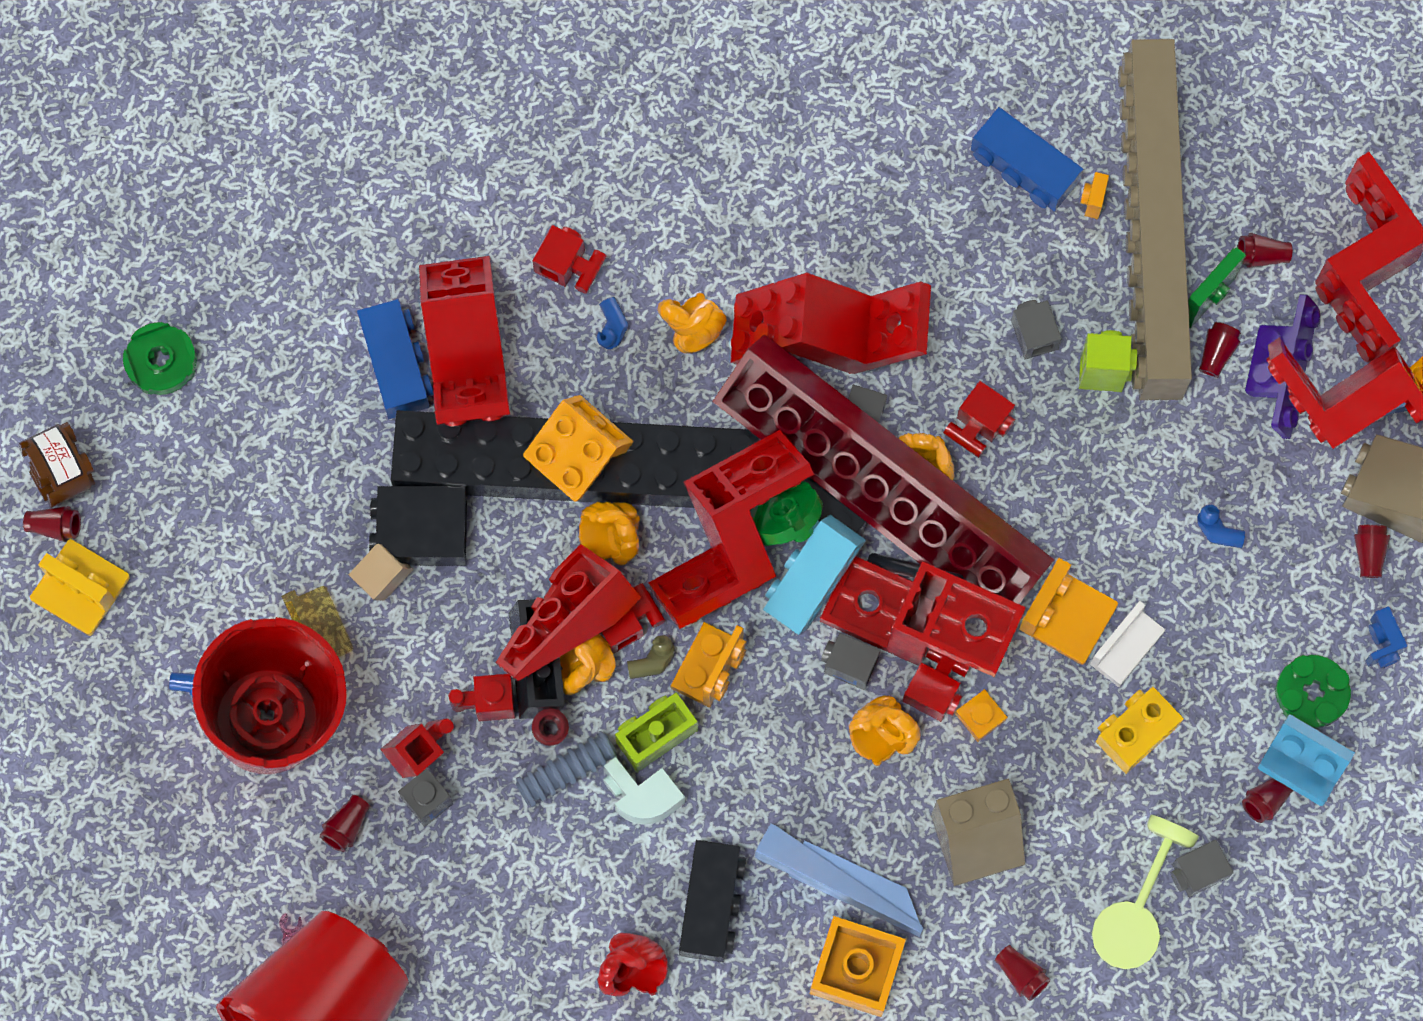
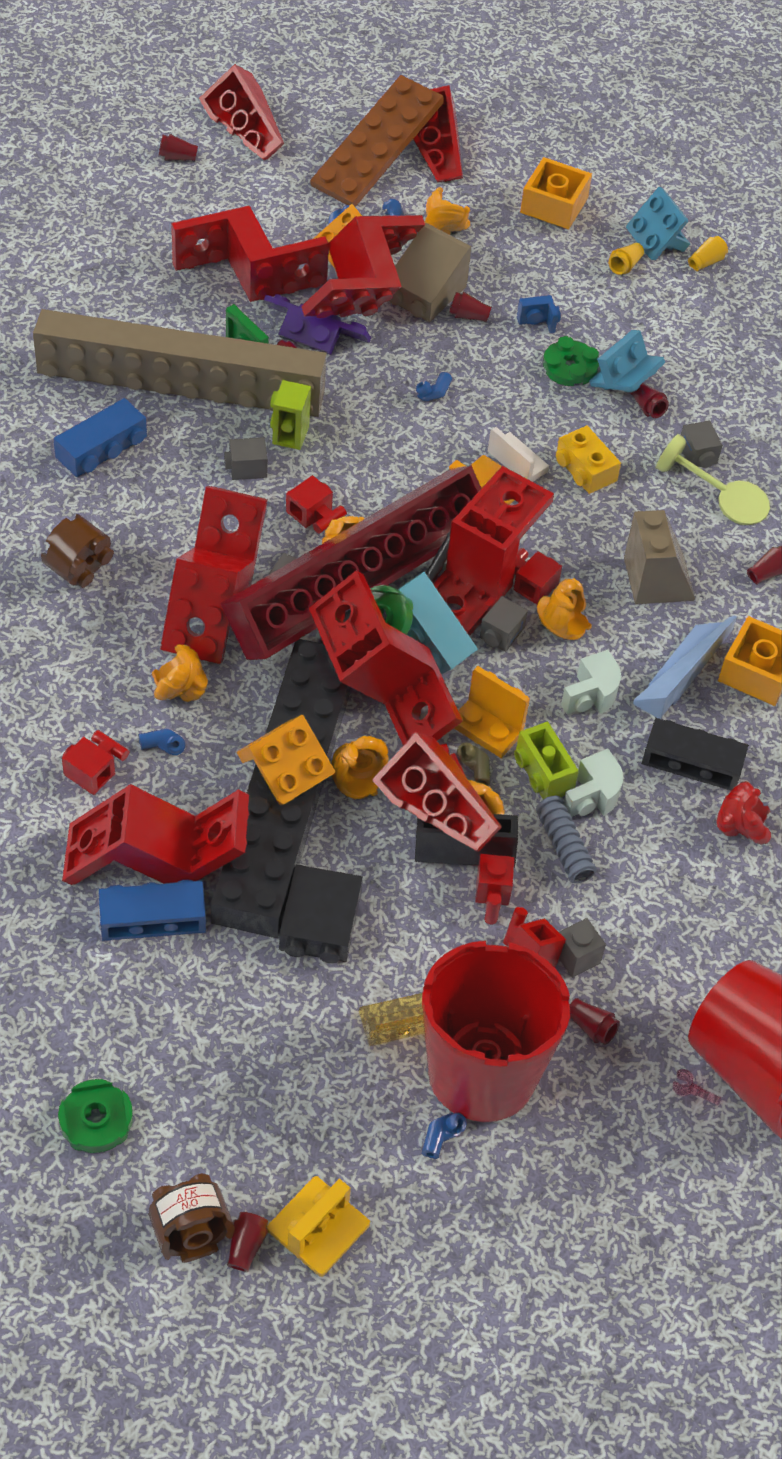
camera: 85 degrees left, 20 degrees down
(380, 573) = (362, 949): tan panel -> none
(550, 716) = (532, 836): dark red cone -> none
(787, 786) = (598, 684): none -> light aqua brick
(836, 173) = (77, 550): none -> reddish brown brick
(981, 715) = (561, 552): light orange plate -> none
(1094, 194) = (146, 401): light orange plate -> none
(1264, 250) = (216, 320): dark red cone -> none

